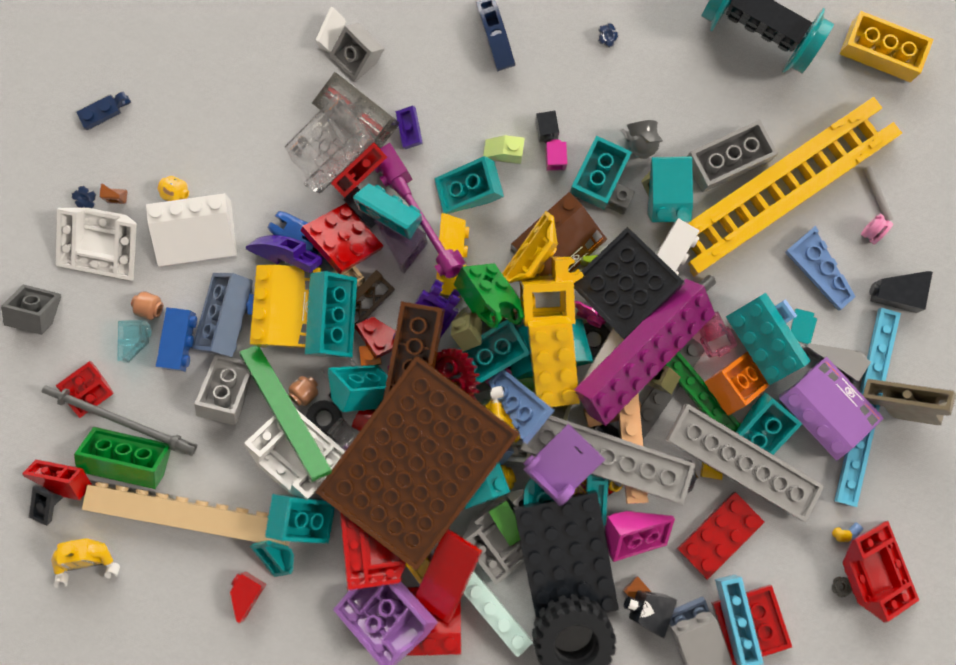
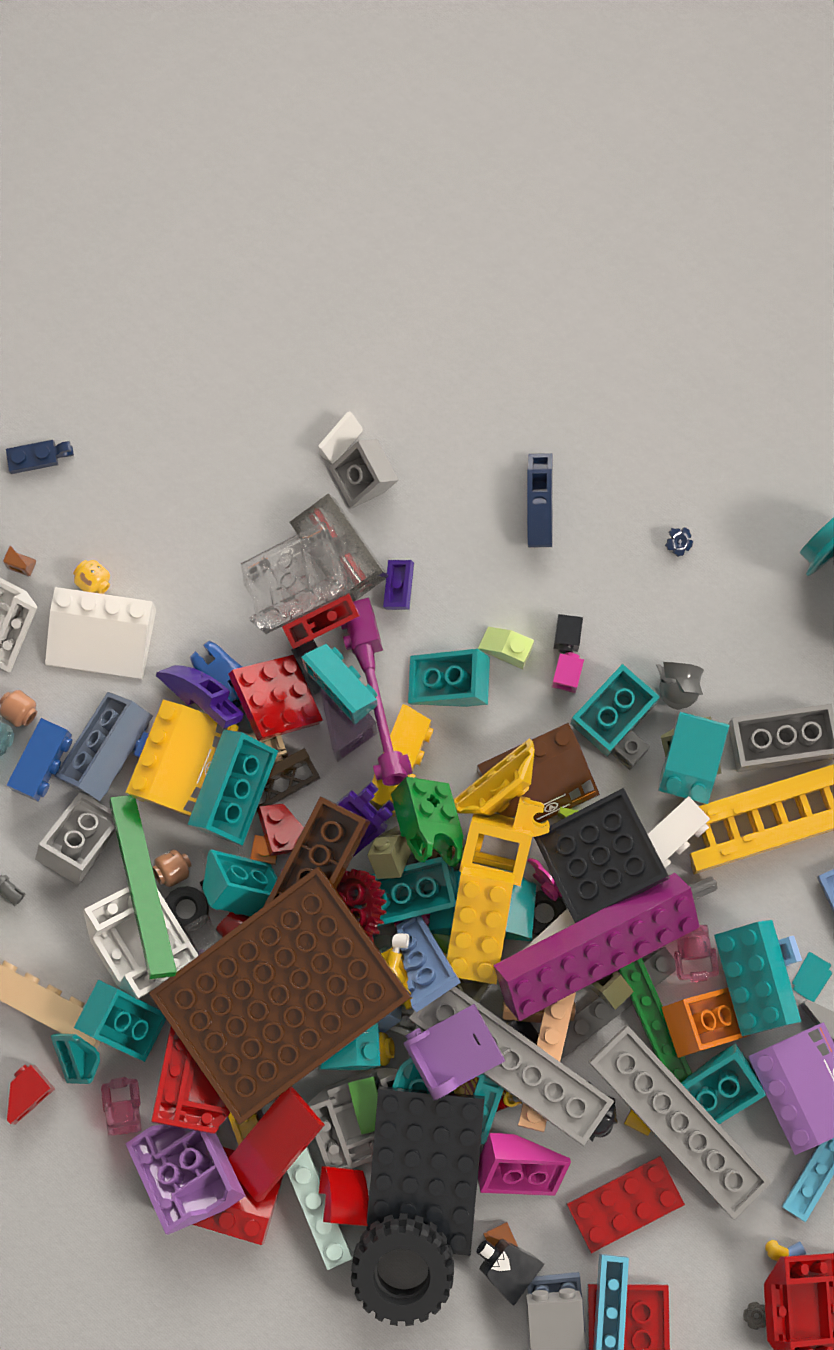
camera: 20 degrees right, 5 degrees down
(324, 589) = (122, 1116): none -> clear pink piece
(512, 596) = (345, 1196): none -> red slope

